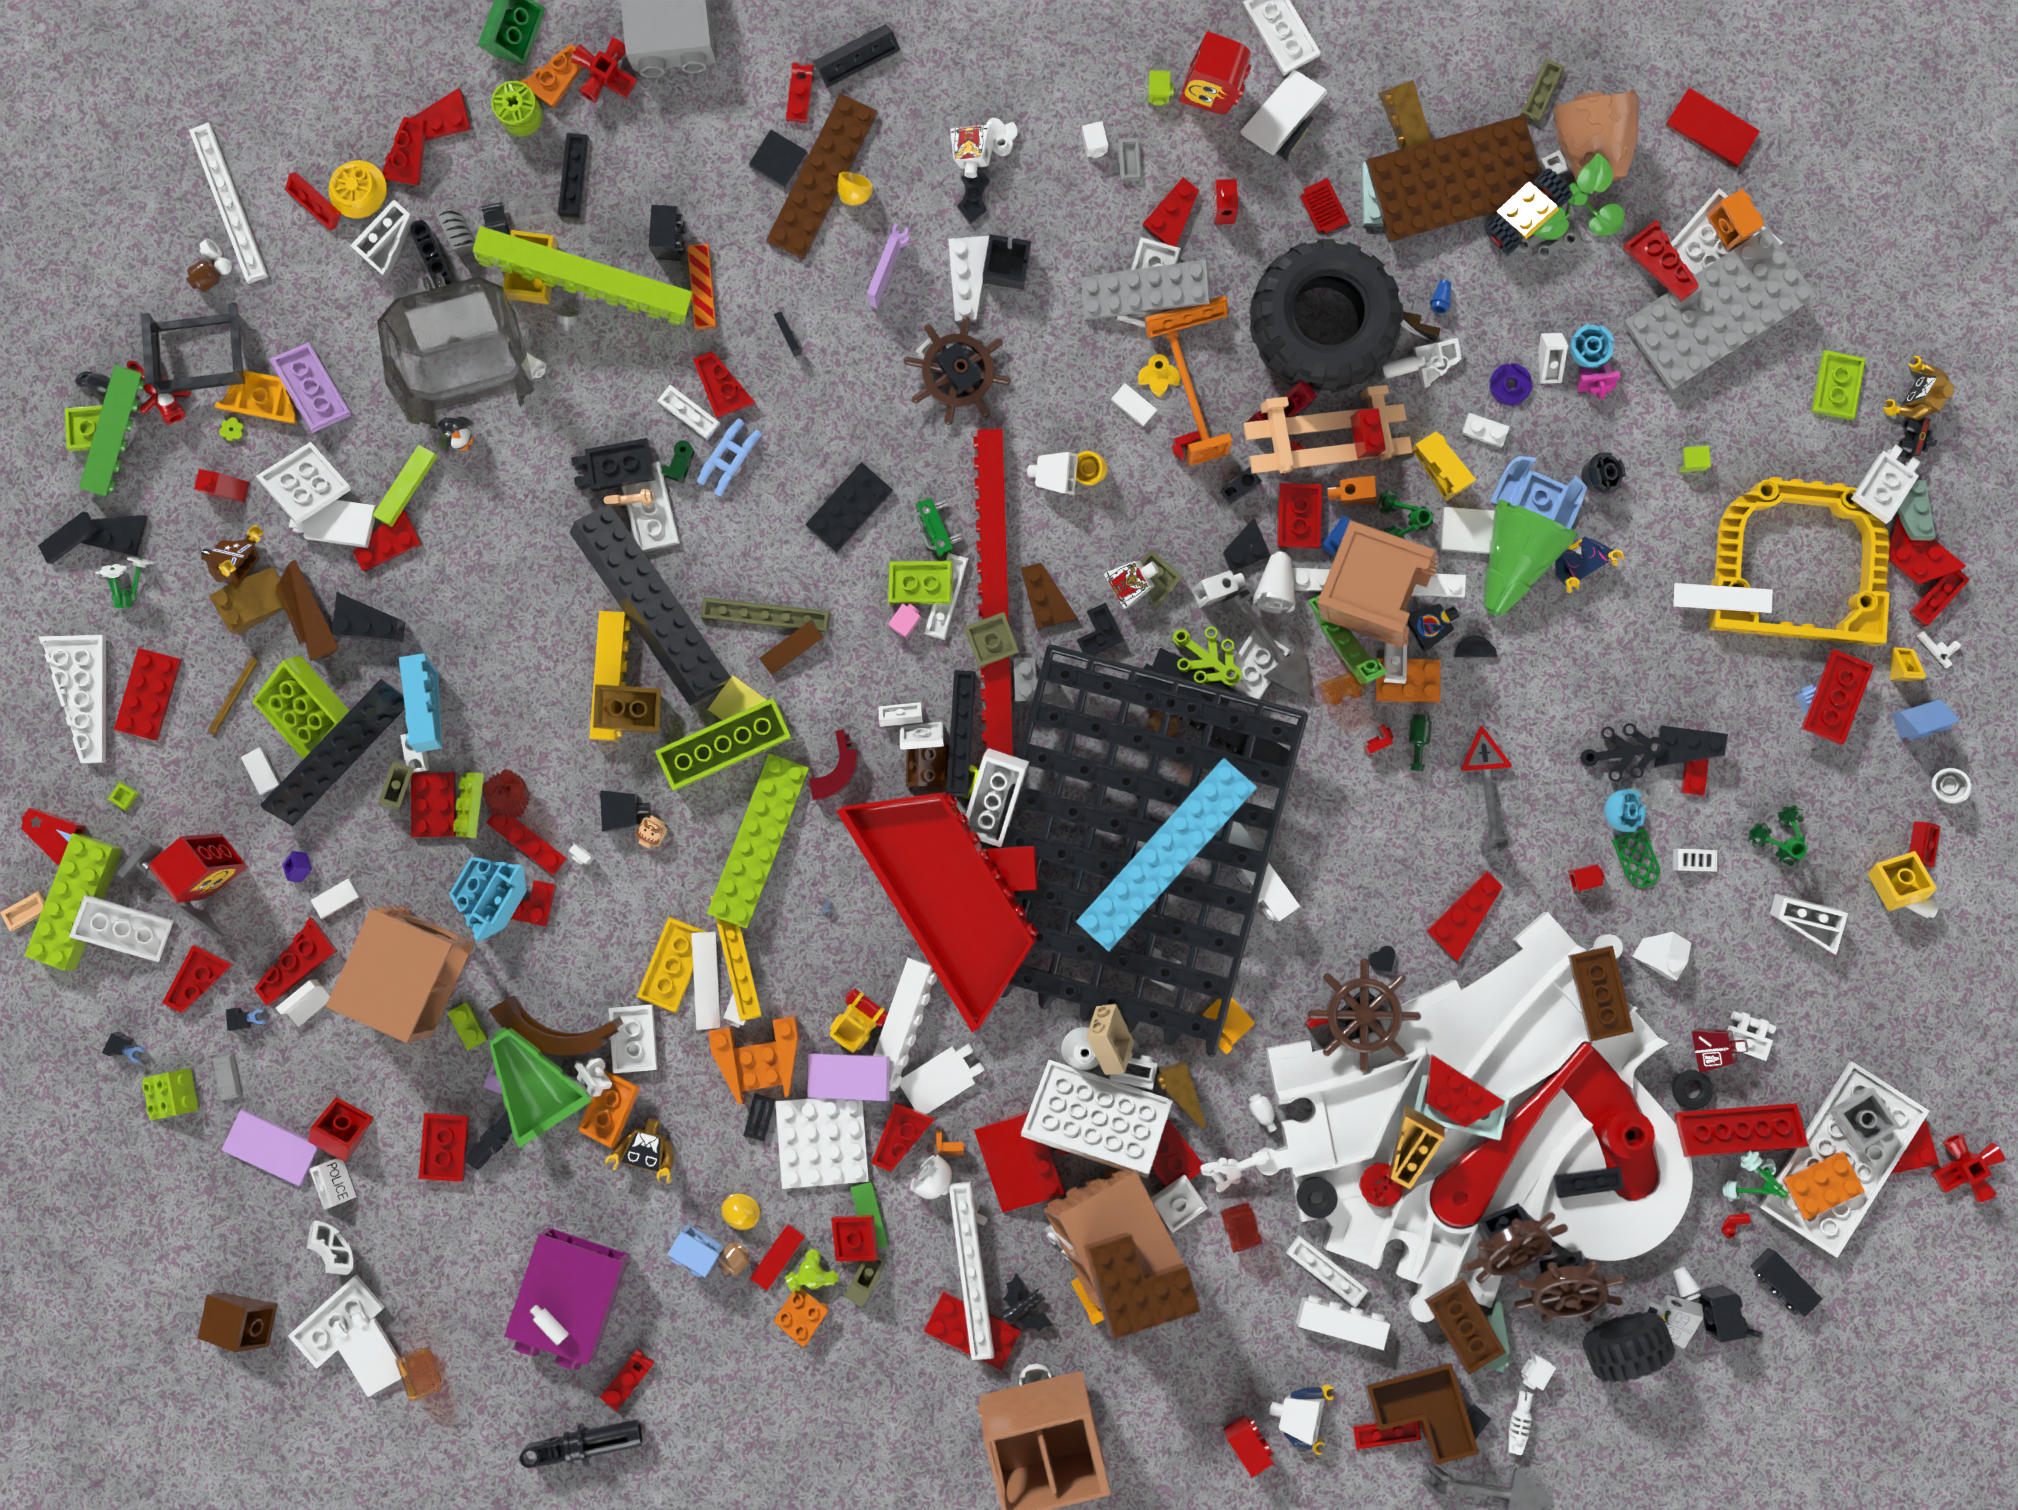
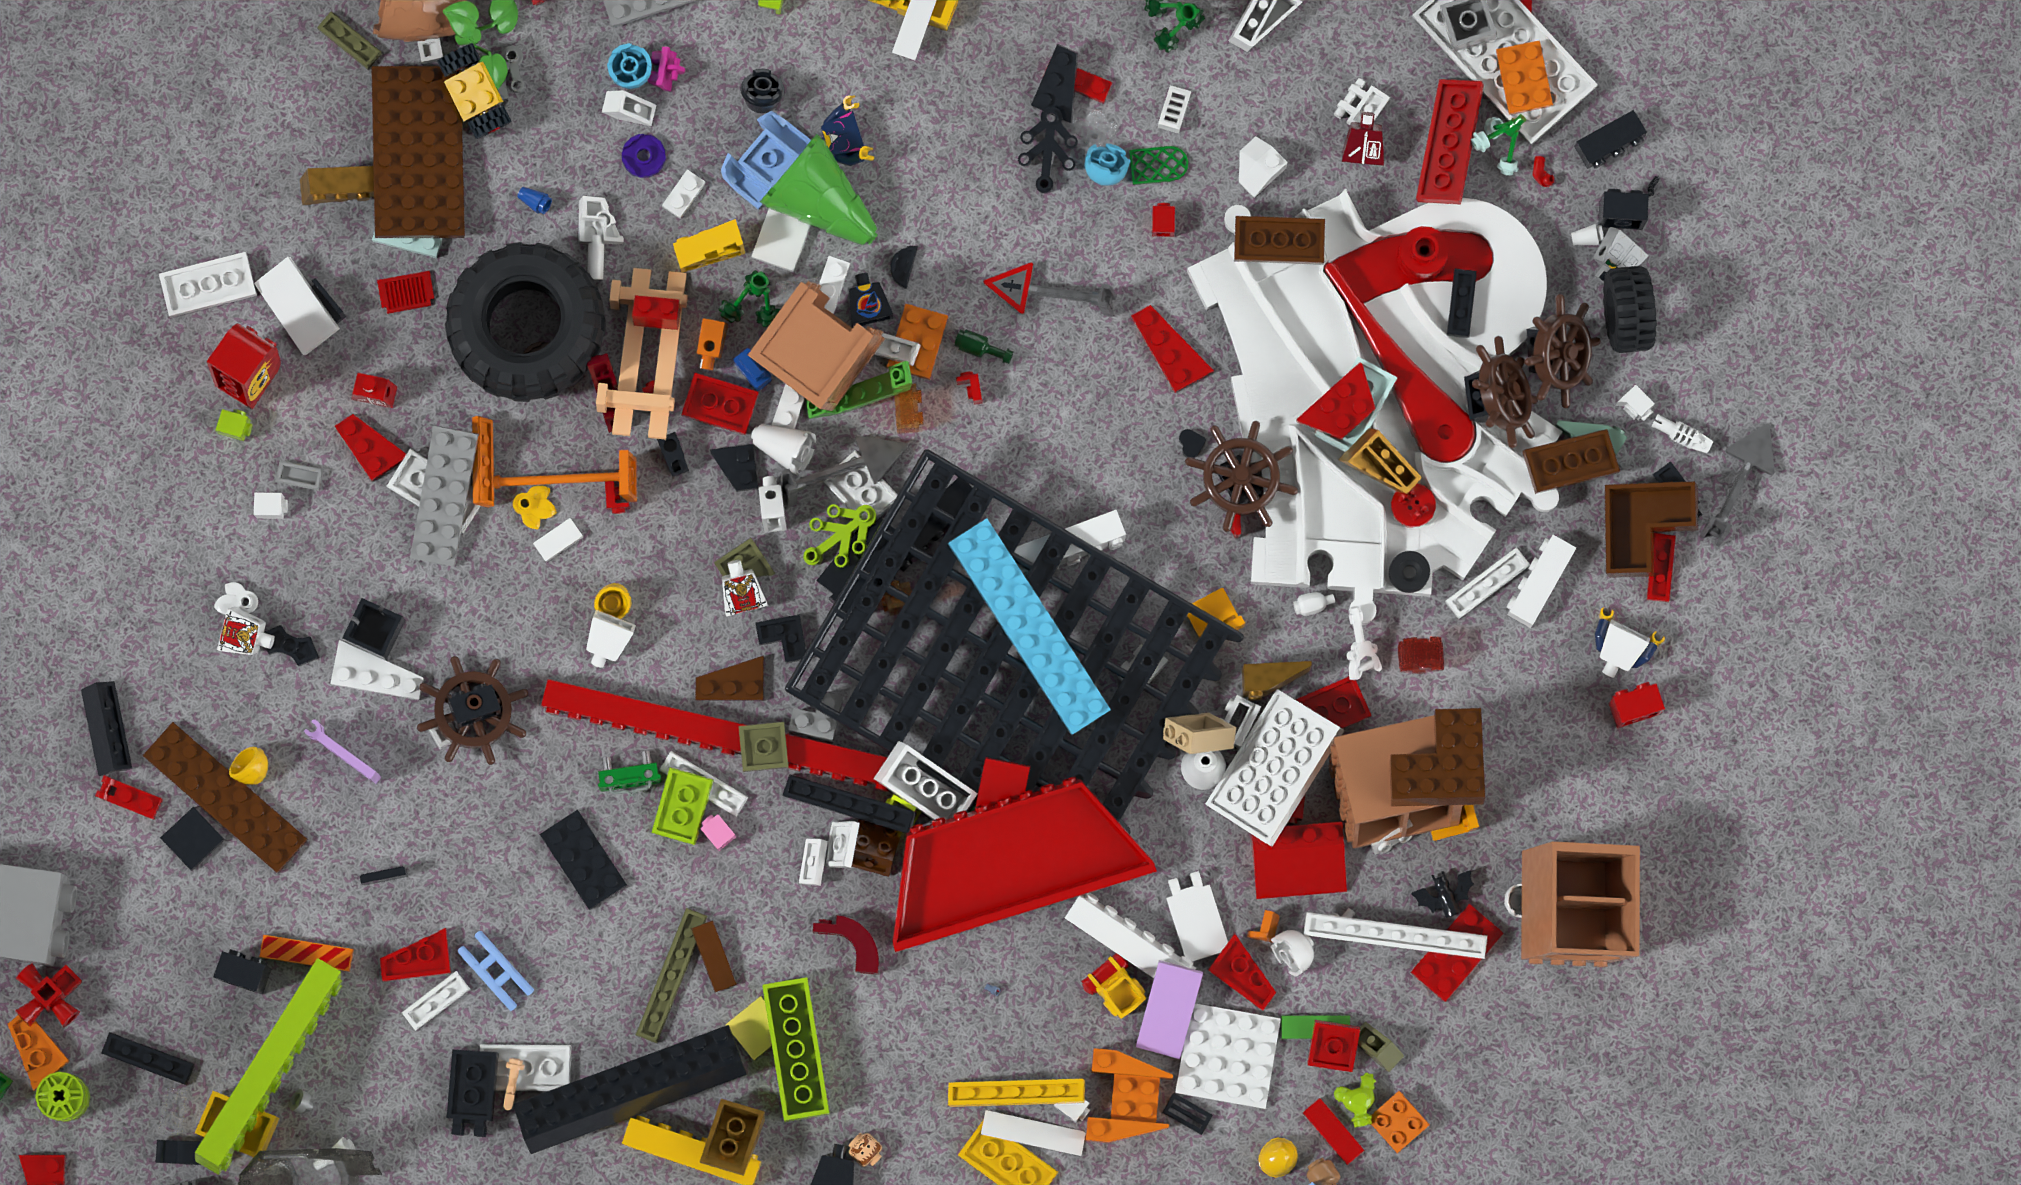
camera: 75 degrees left, 5 degrees down
(680, 463) = (481, 1017): dark green leg -> none
(758, 841) = (904, 1041): lime plate -> none
(1178, 1203) = (1381, 707): white tile -> none
(1412, 323) = (554, 236): dark brown slope -> none
(1704, 1096) = (1400, 189): black tyre -> none

